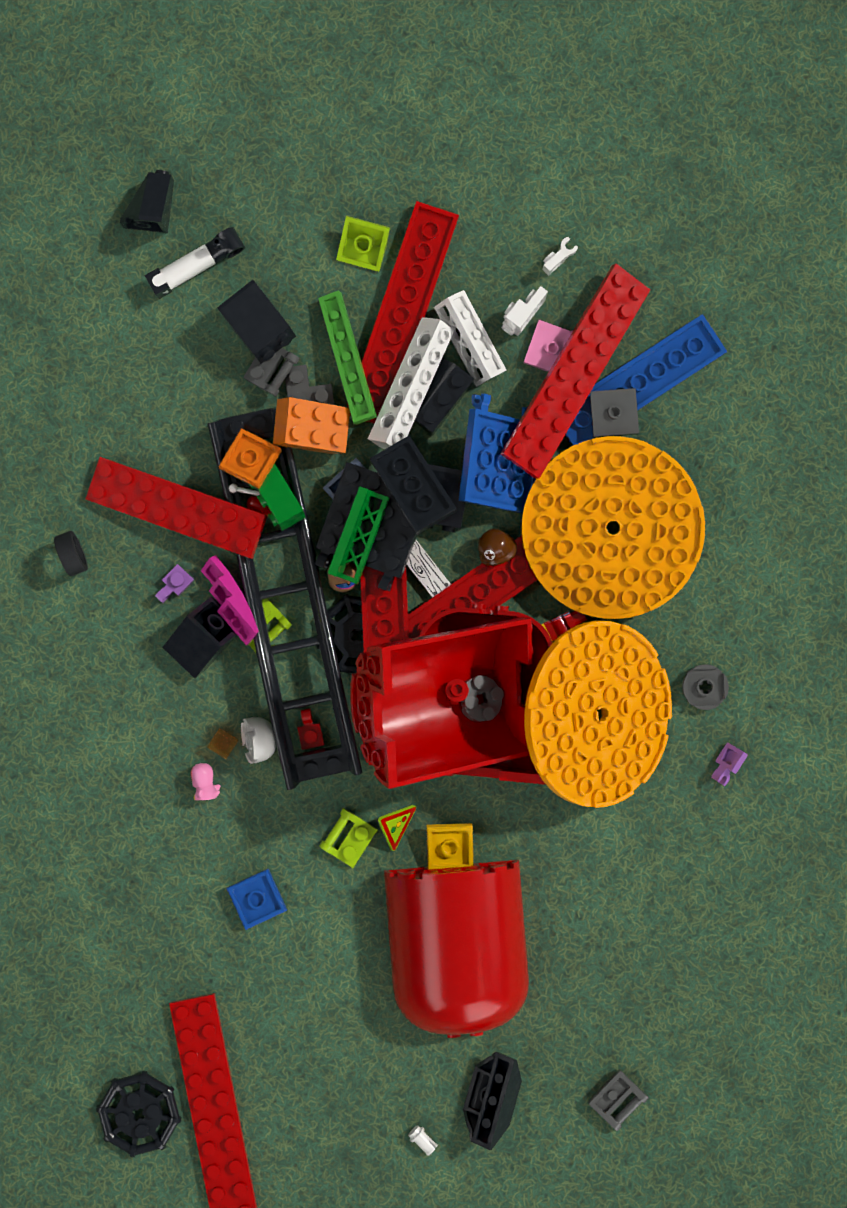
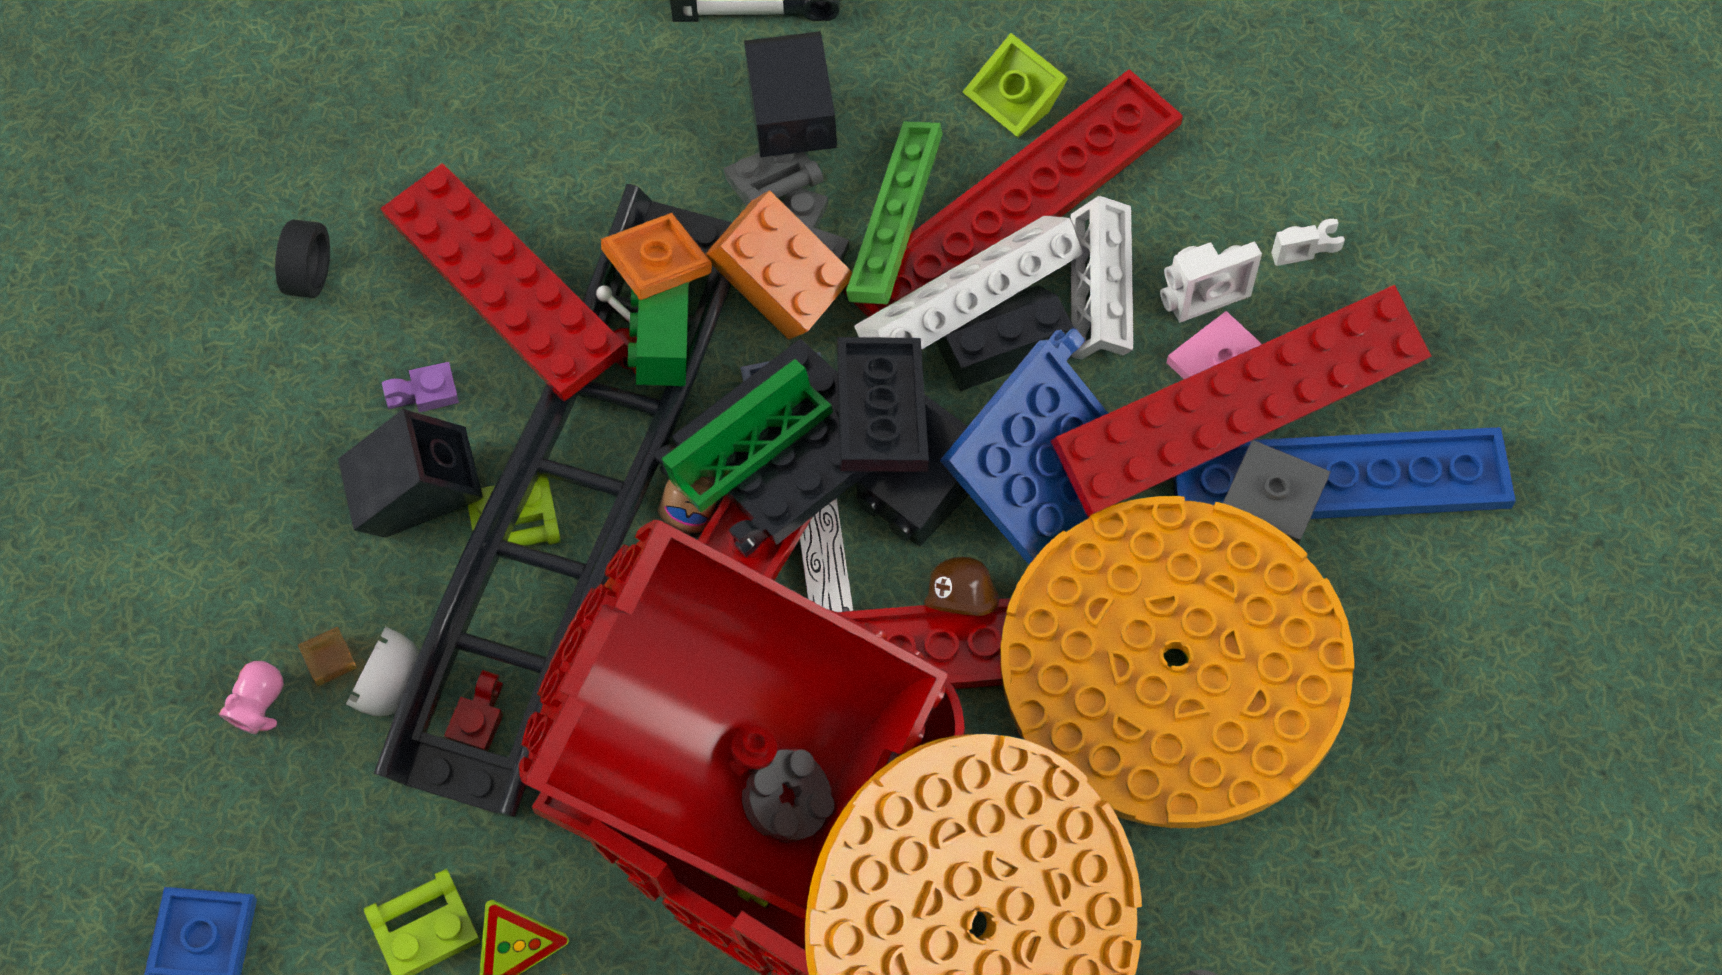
camera: 25 degrees right, 25 degrees down
(233, 604) = (488, 449): dark pink slope -> none

